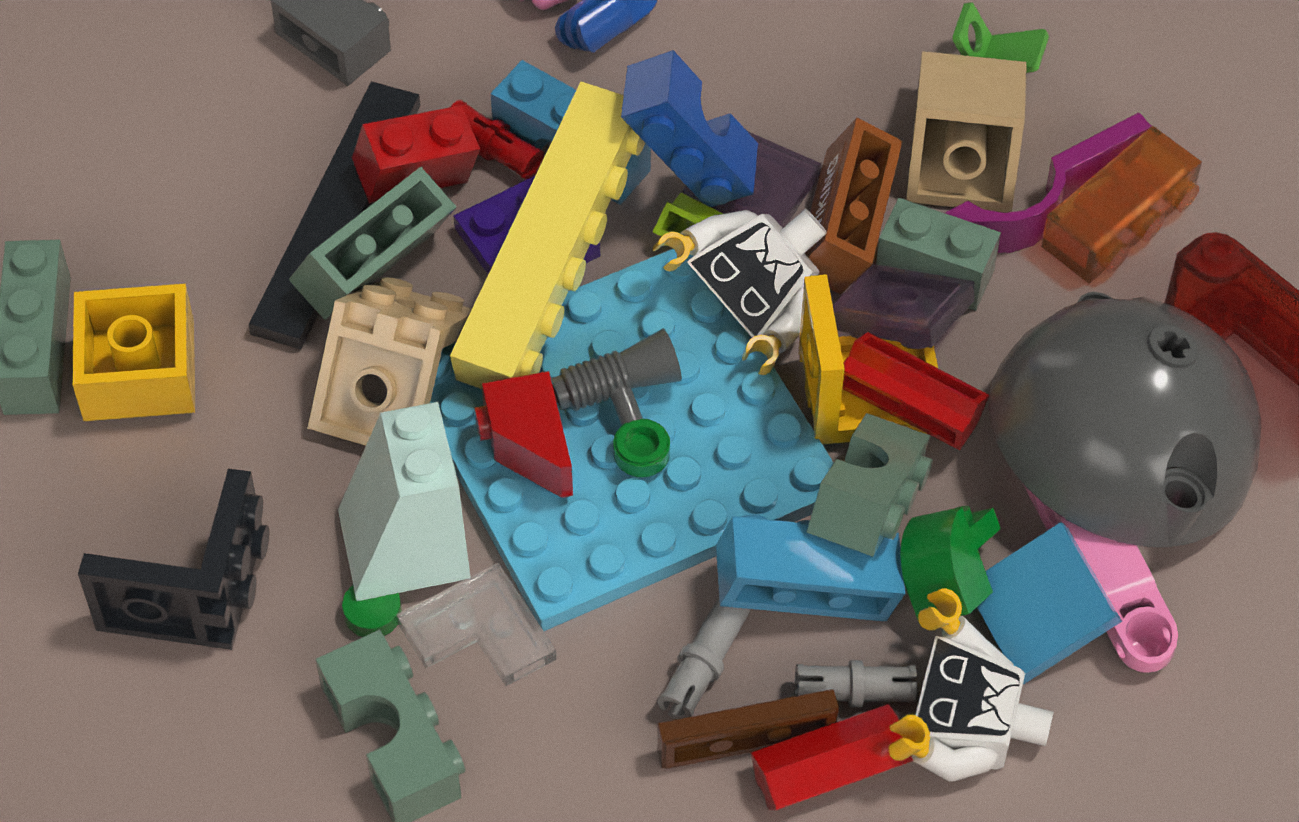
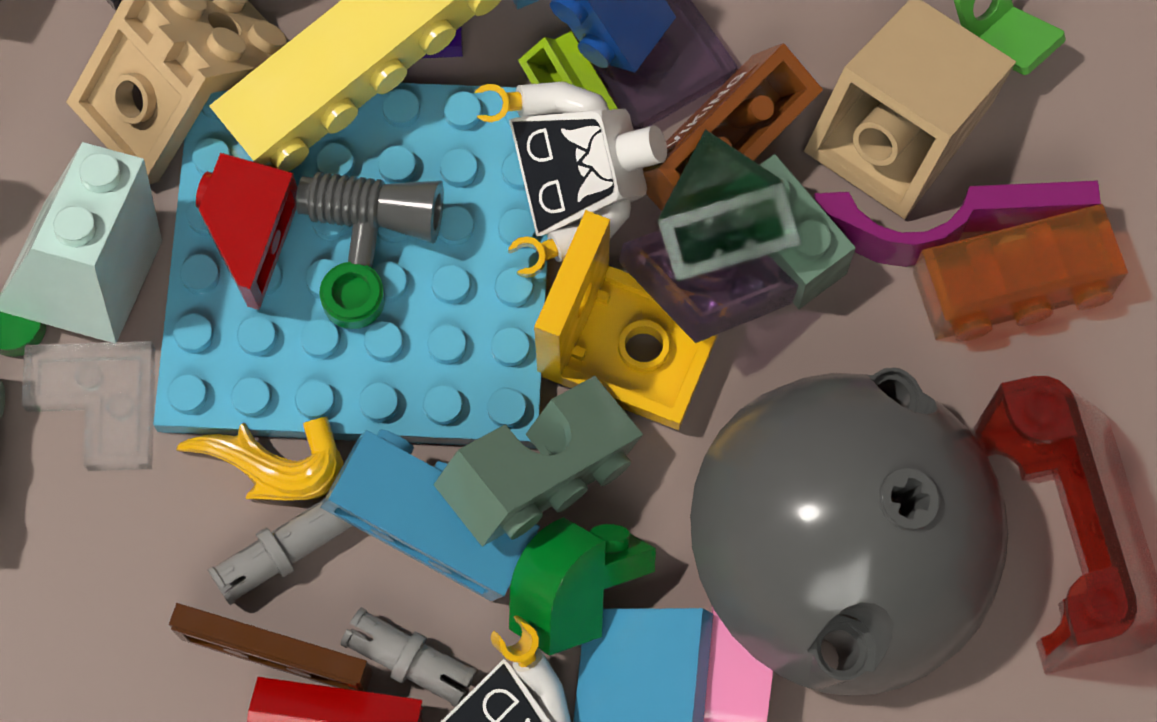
camera: 30 degrees right, 15 degrees up
(658, 611) = (272, 475): none -> yellow piece
(897, 242) = (724, 212): none -> clear green slope
(913, 390) = (657, 374): red piece -> none

